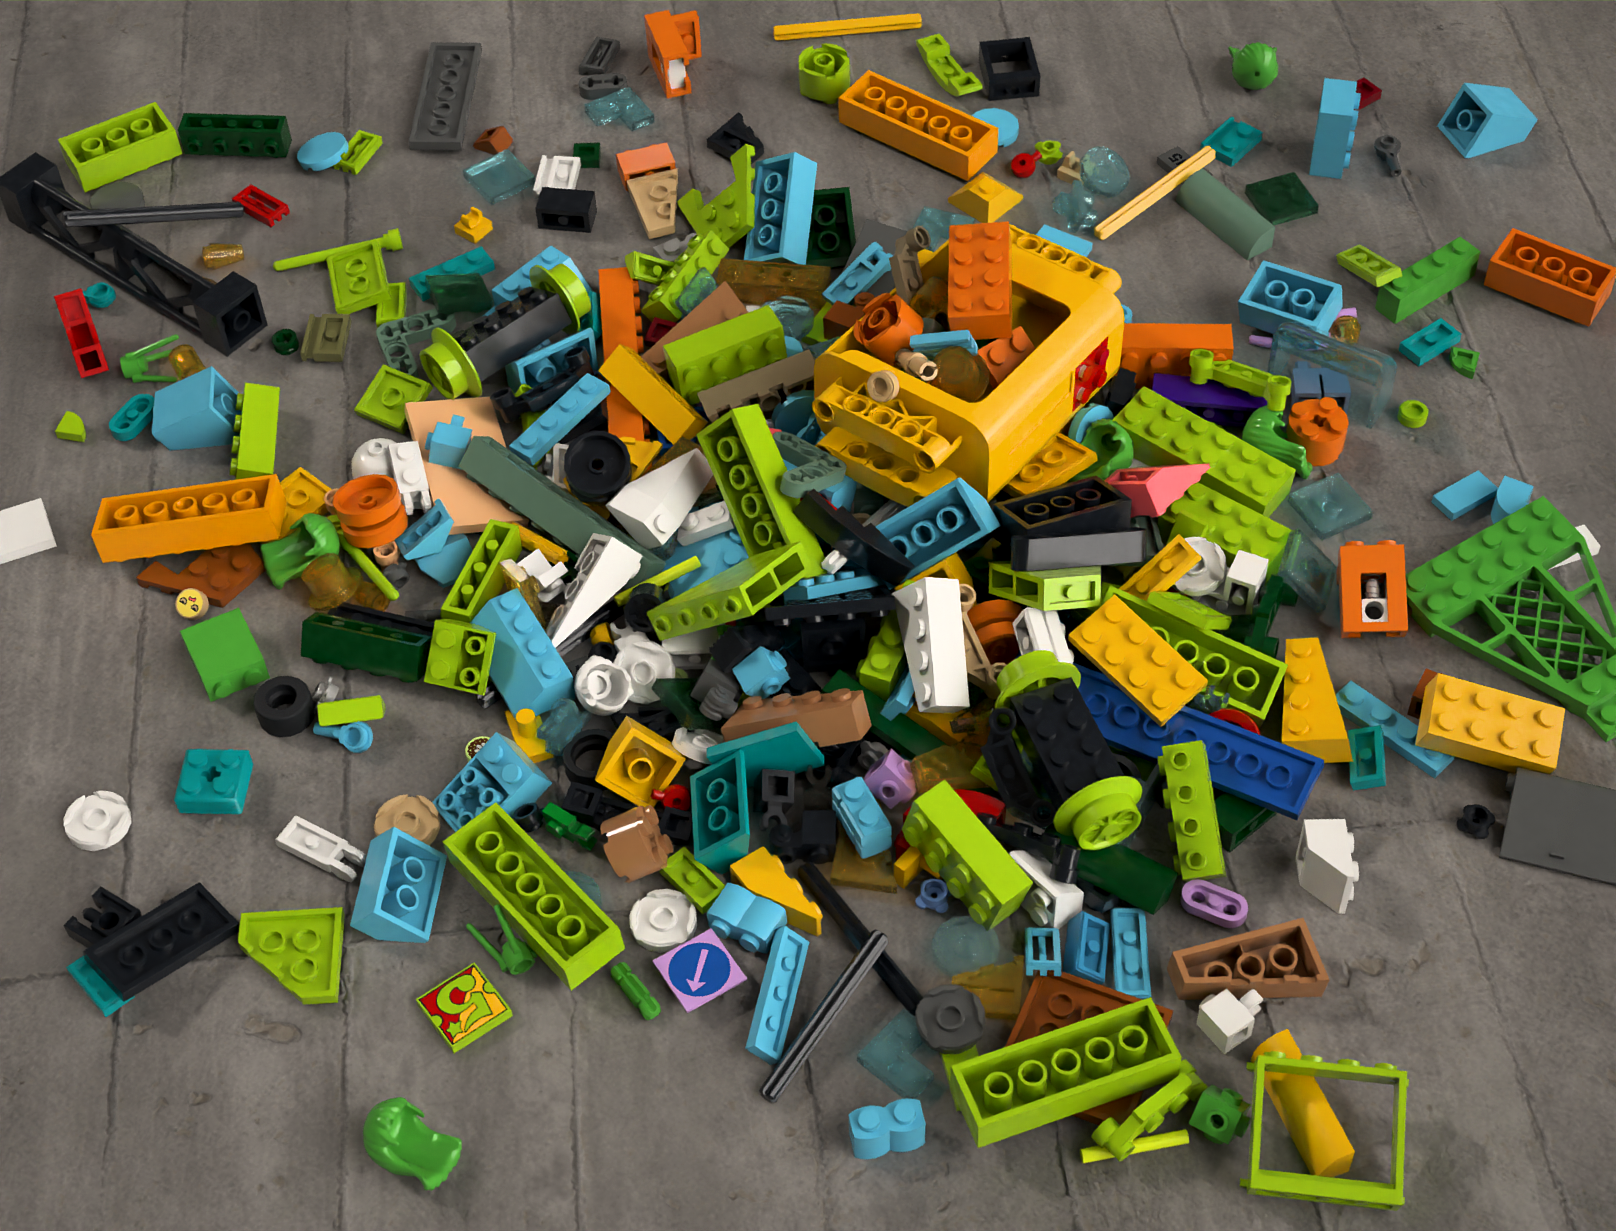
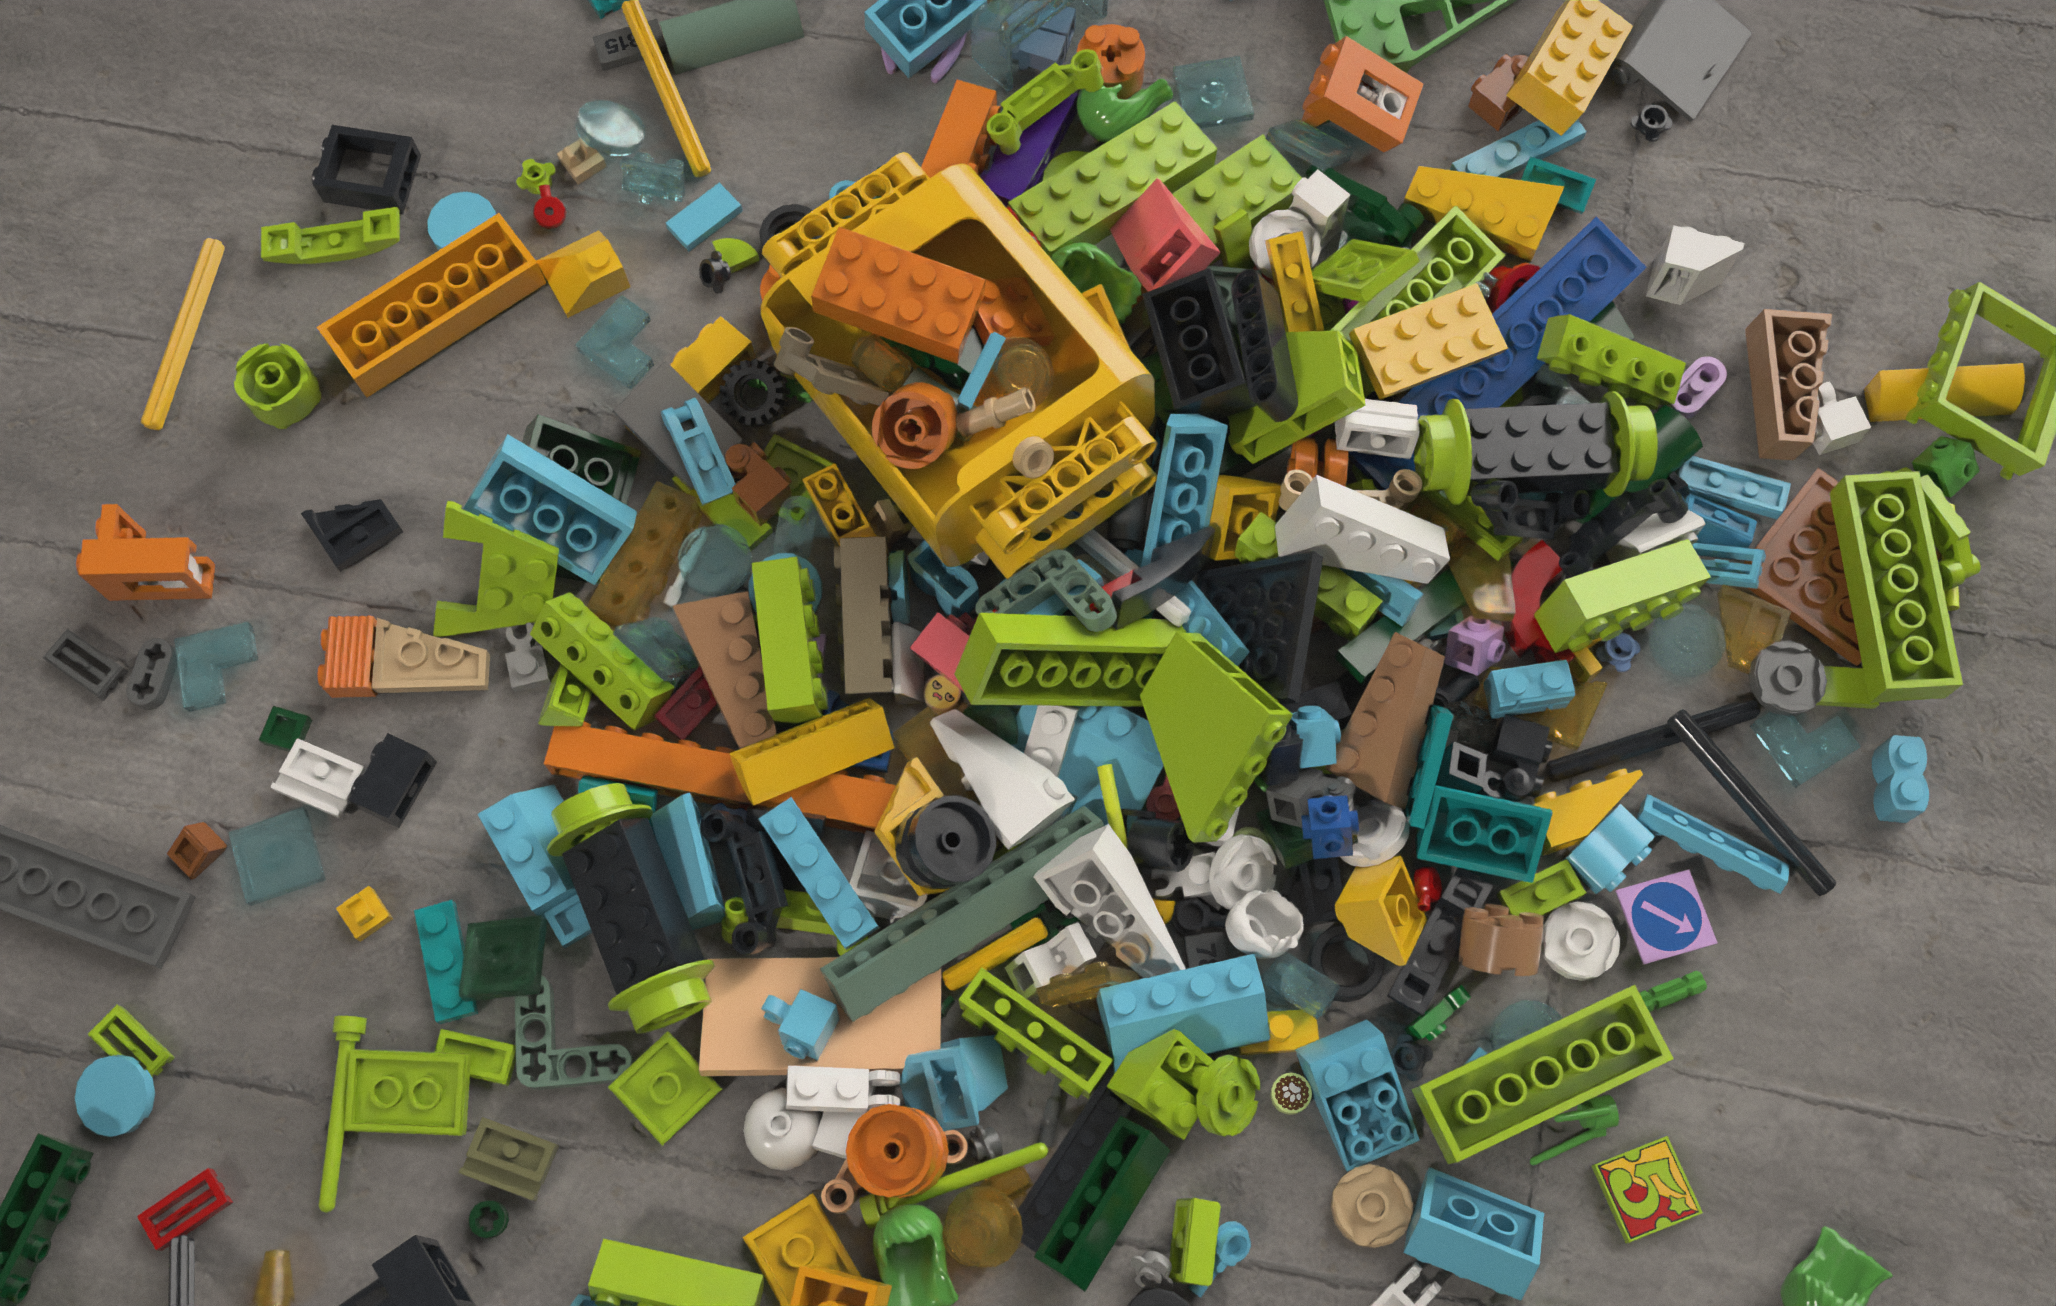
camera: 75 degrees left, 20 degrees up
(464, 701) = (1228, 1096): none -> lime tile
(685, 690) = (1330, 826): none -> blue brick

